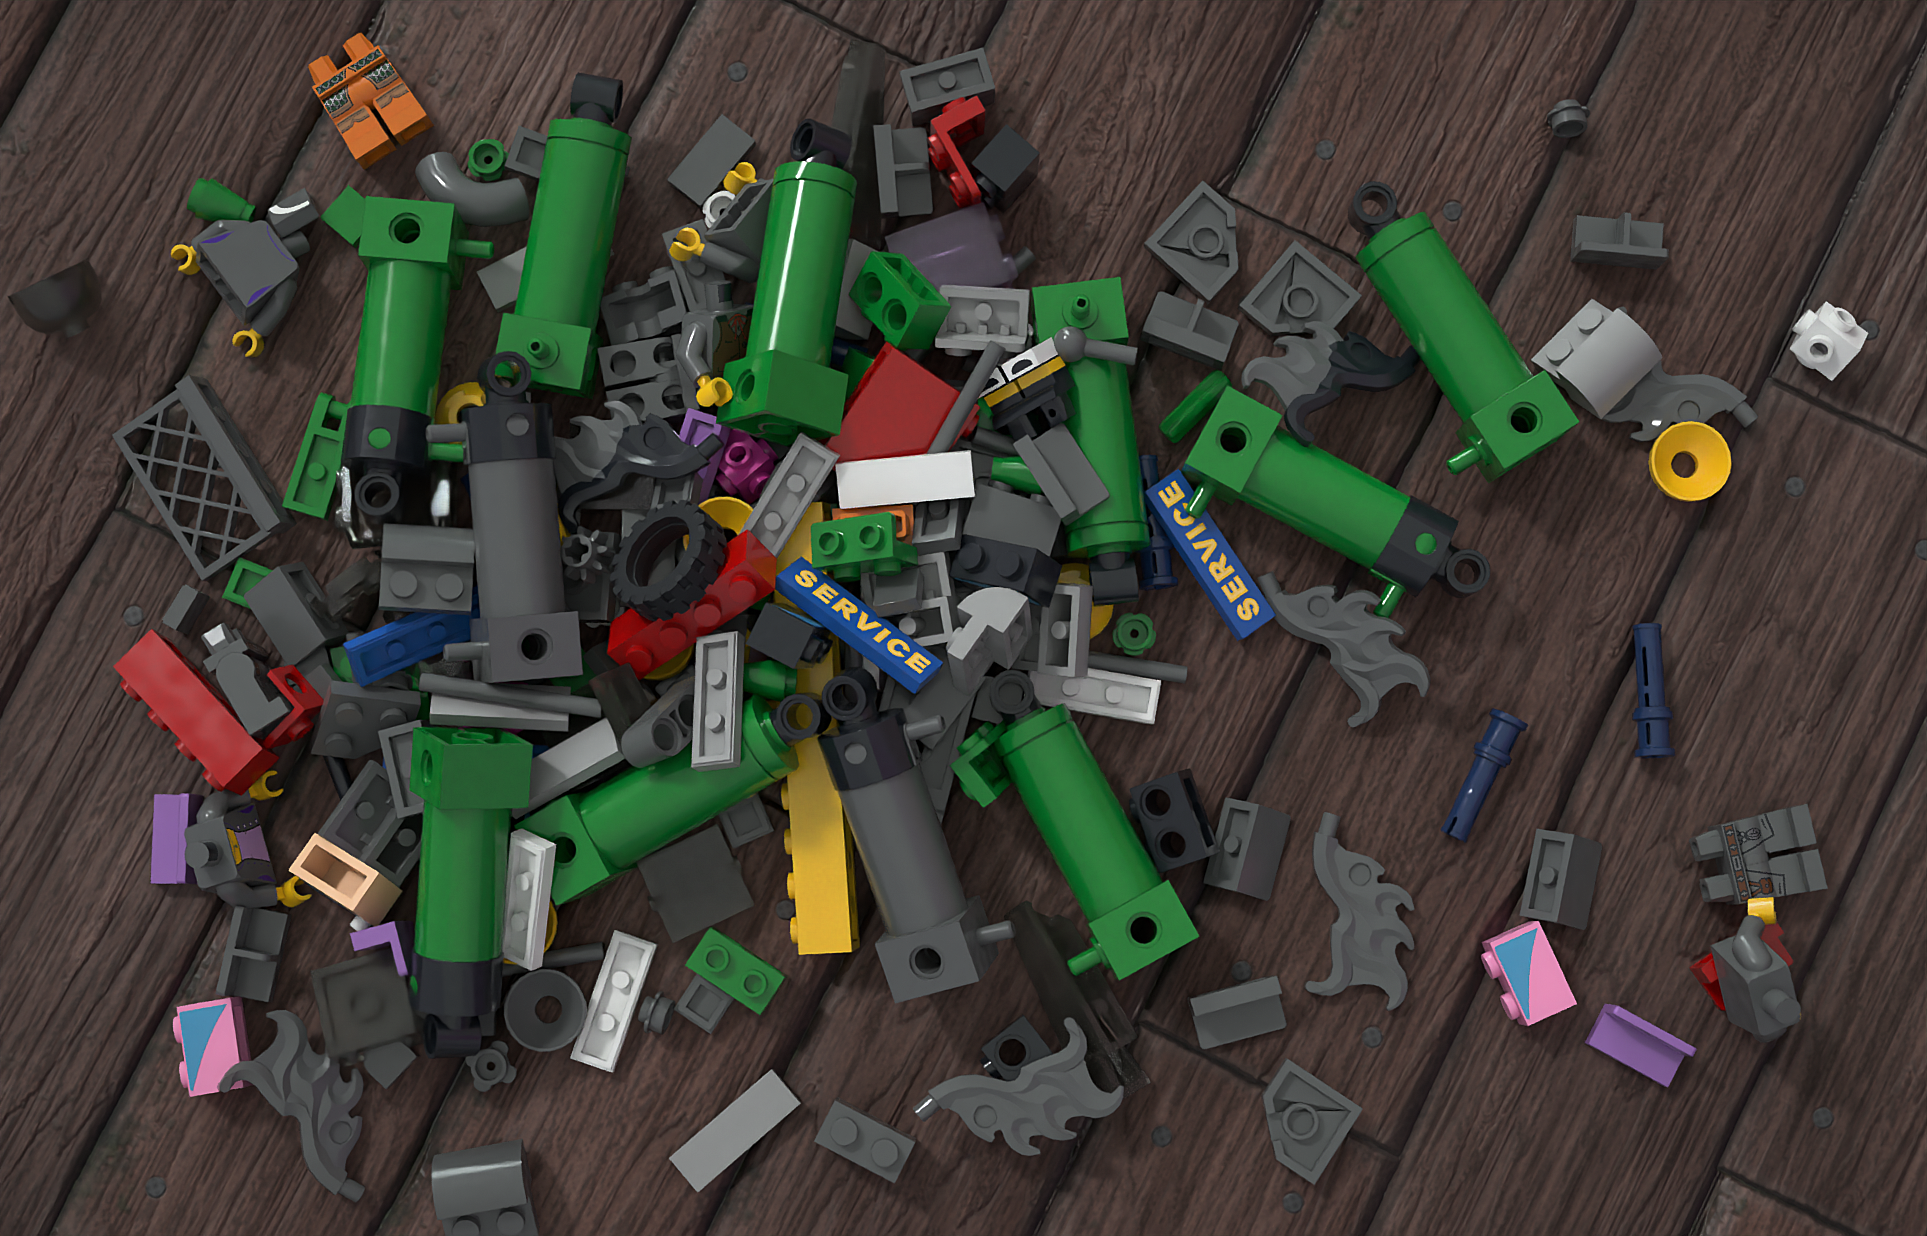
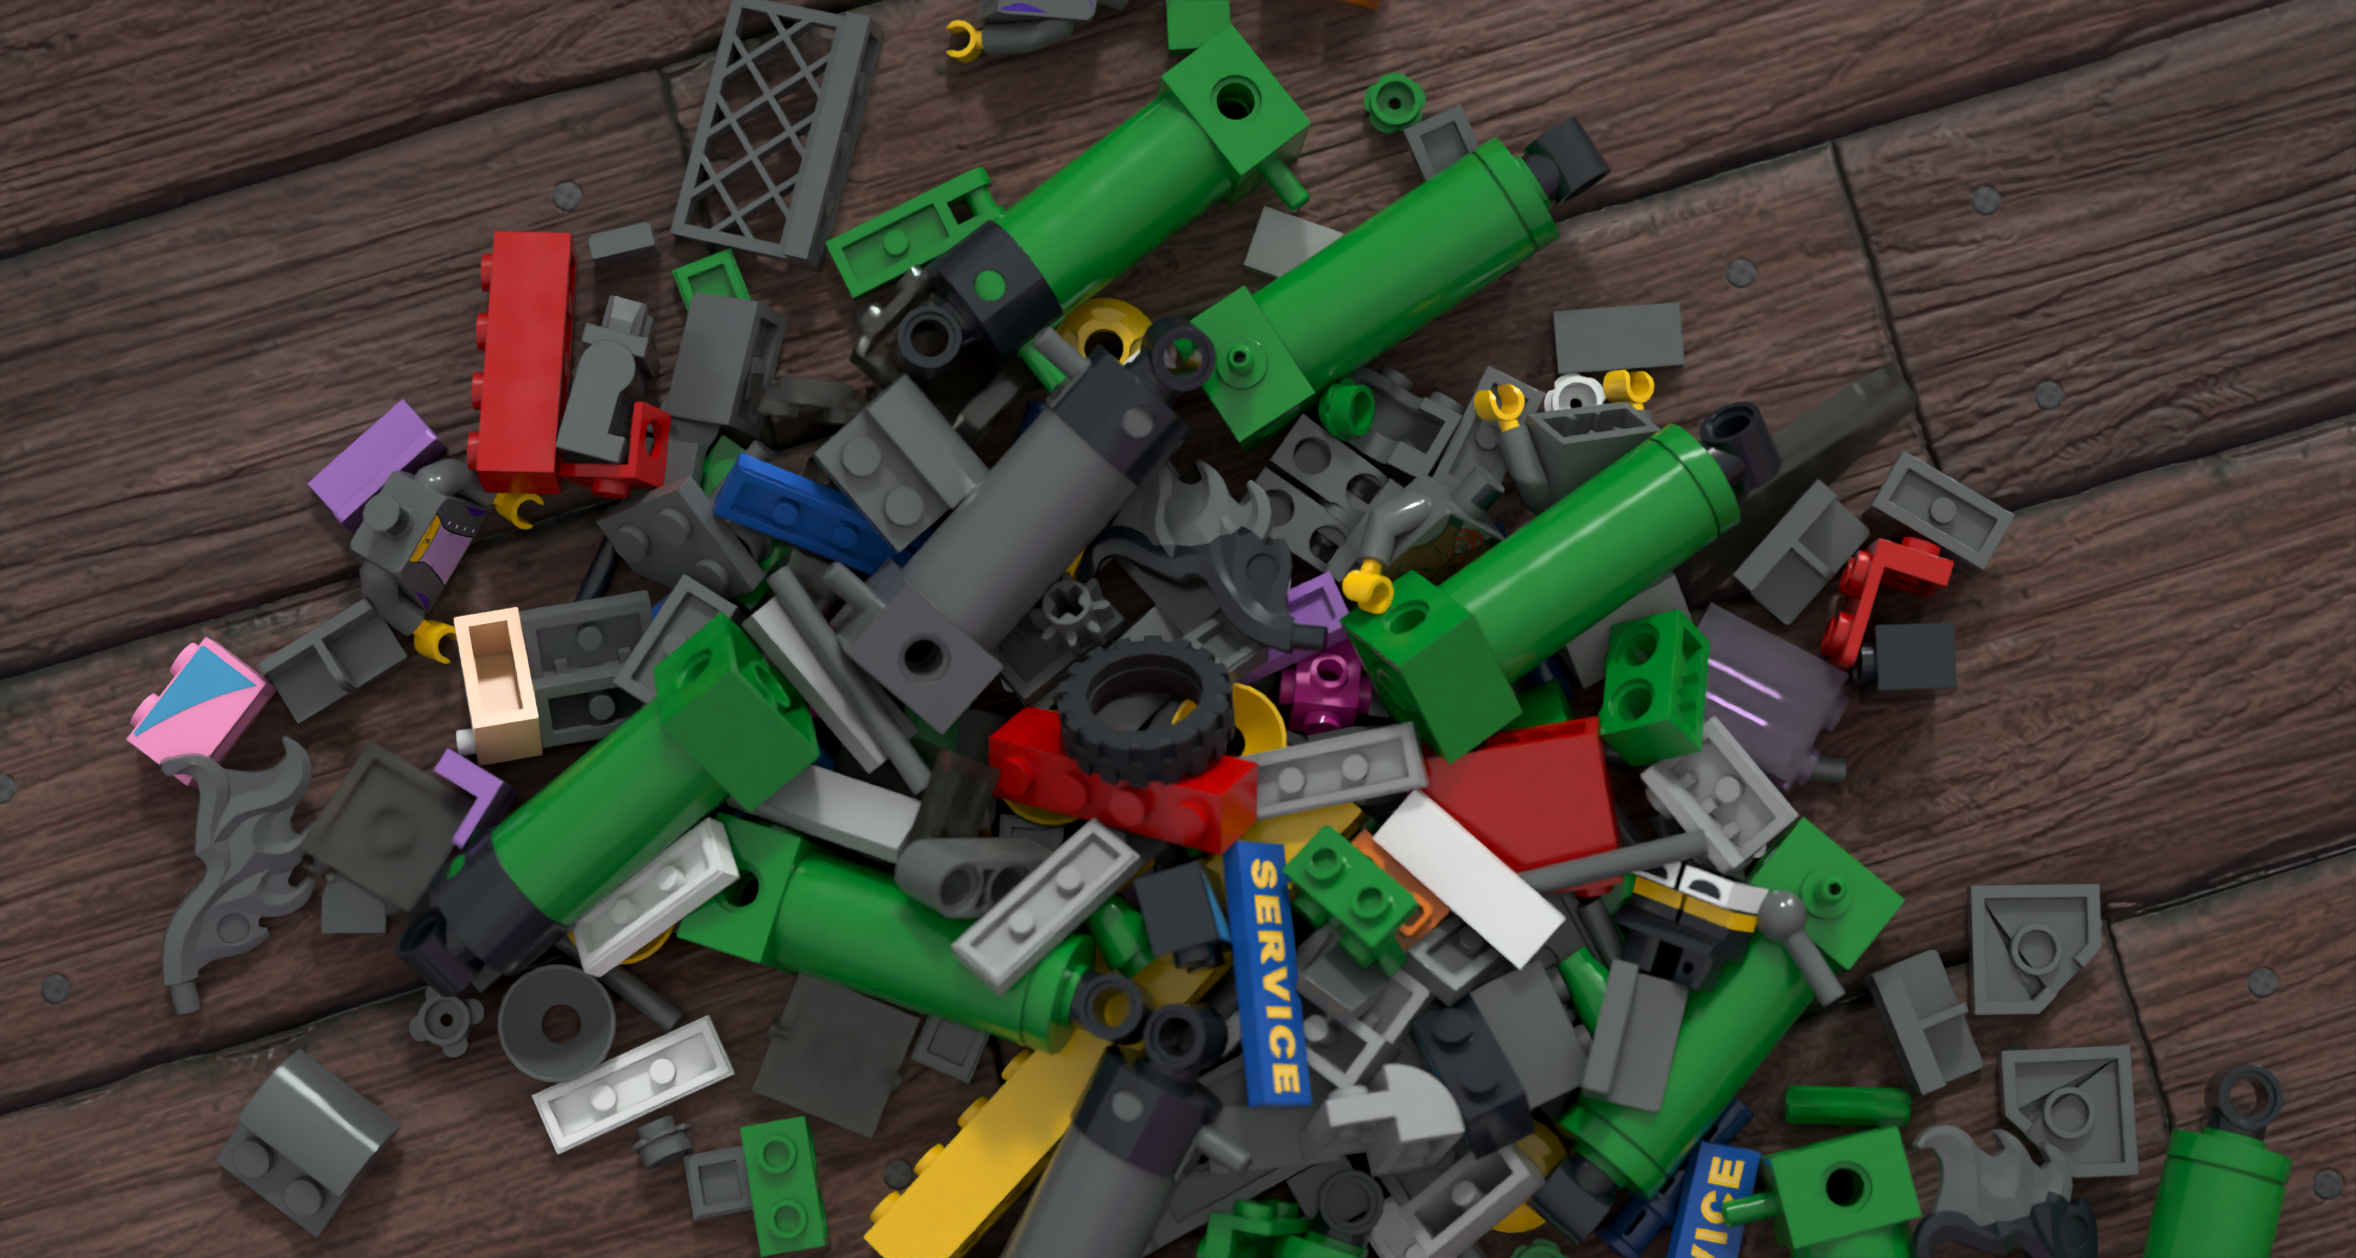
camera: 45 degrees right, 0 degrees up
(476, 202) = (1337, 138): dark grey cylinder -> none
(616, 323) = (1347, 409): none -> green plate

